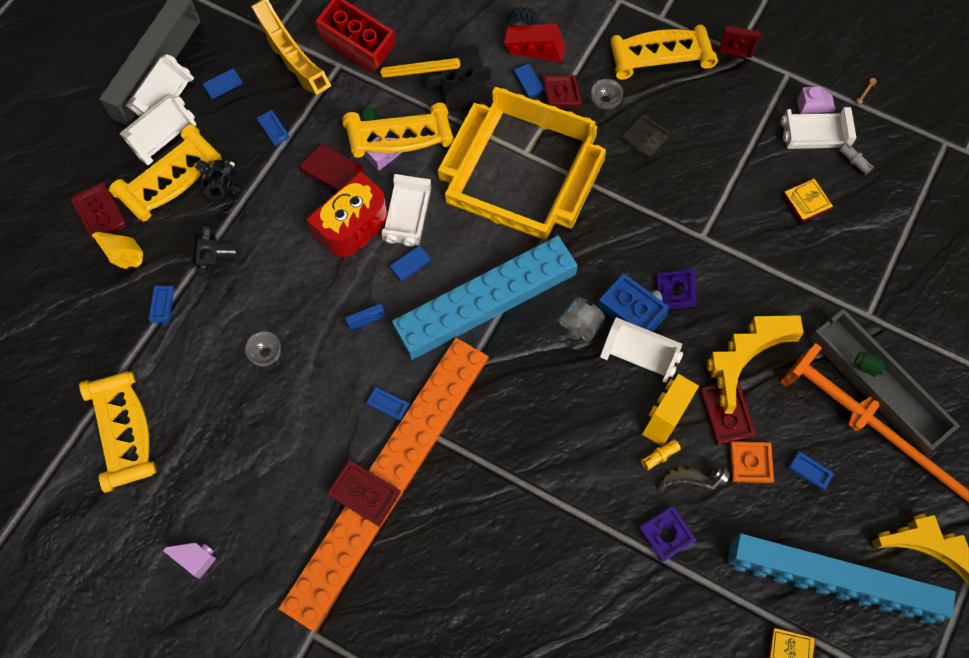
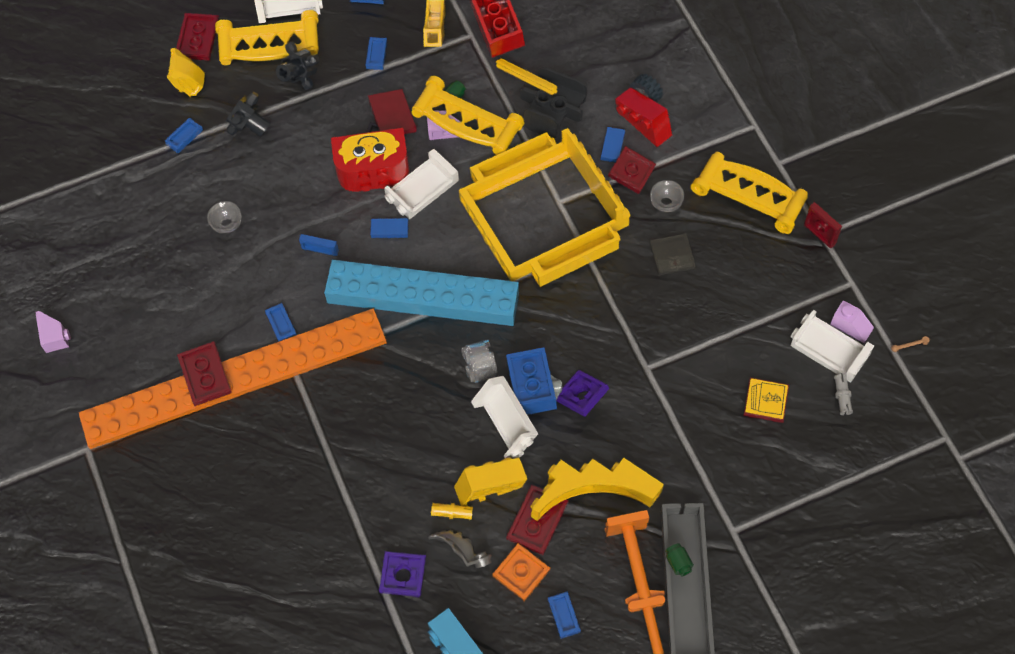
camera: 40 degrees right, 5 degrees down
(119, 470) = (88, 171): yellow piece -> none

